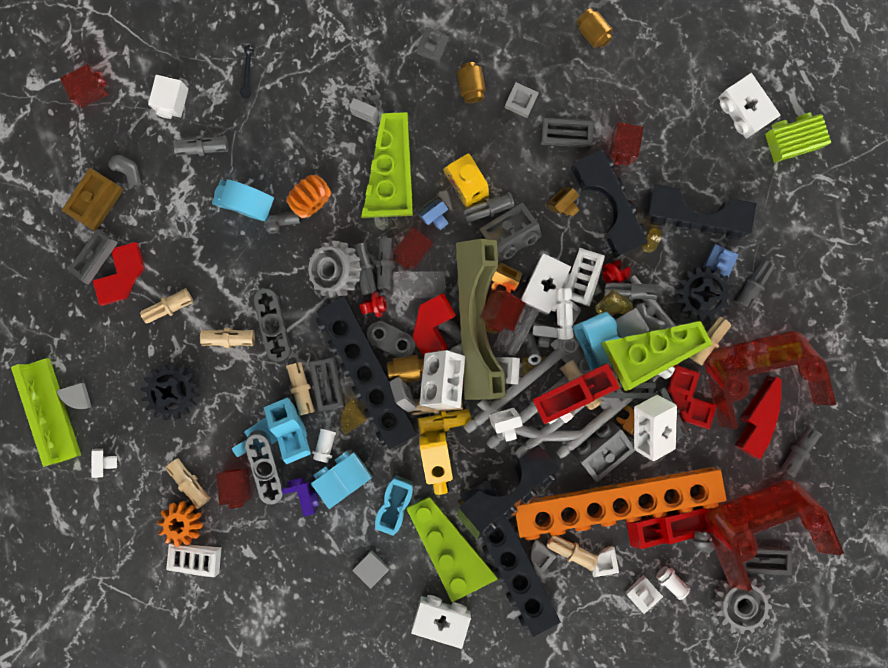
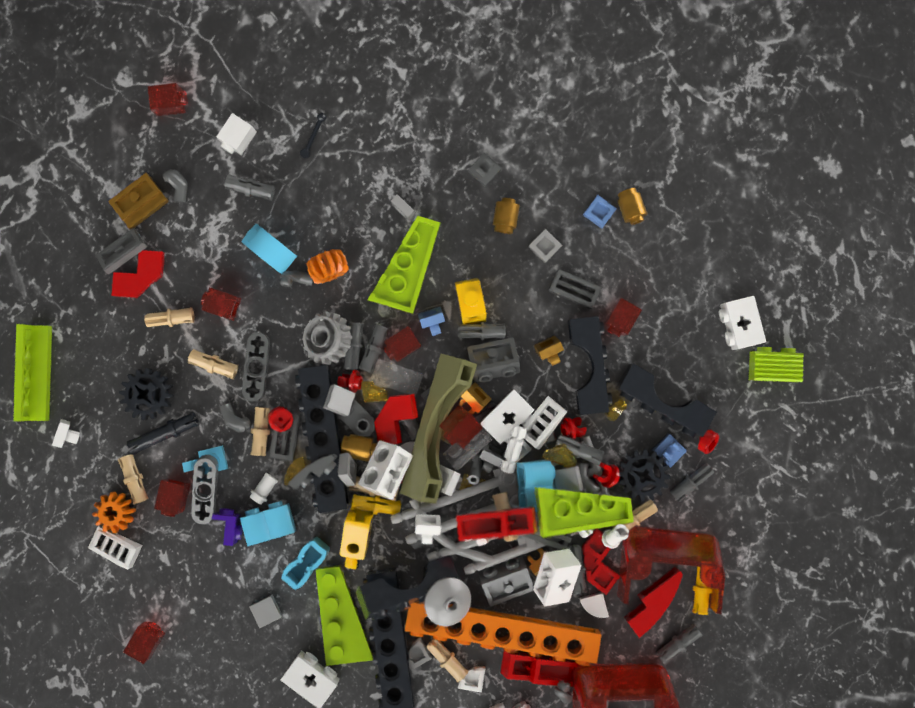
camera: 20 degrees right, 0 degrees up
(75, 396) = (62, 368): light grey tile -> none
(209, 418) = (171, 429): none -> black pin
(213, 273) = (220, 303): none -> clear red brick
(258, 644) = (144, 642): none -> clear red brick
(269, 389) = (232, 421): none -> dark grey arm
(289, 430) = (237, 463): medium azure brick -> none
(316, 368) = (280, 419): none -> red tile
(369, 327) = (339, 400): none -> light grey tile
(374, 400) = (319, 467): none -> dark grey slope
(401, 308) = (373, 393): none -> clear yellow tile
(544, 491) = (440, 596): none -> light grey dish
(563, 46) = (599, 211): none -> medium blue tile
(670, 306) = (610, 475): none -> red plate
(696, 368) = (613, 537): none -> white pin
(701, 443) = (595, 605): none -> white tile
(757, 237) = (708, 441): none -> red tile
(805, 392) = (701, 596): none -> yellow pin

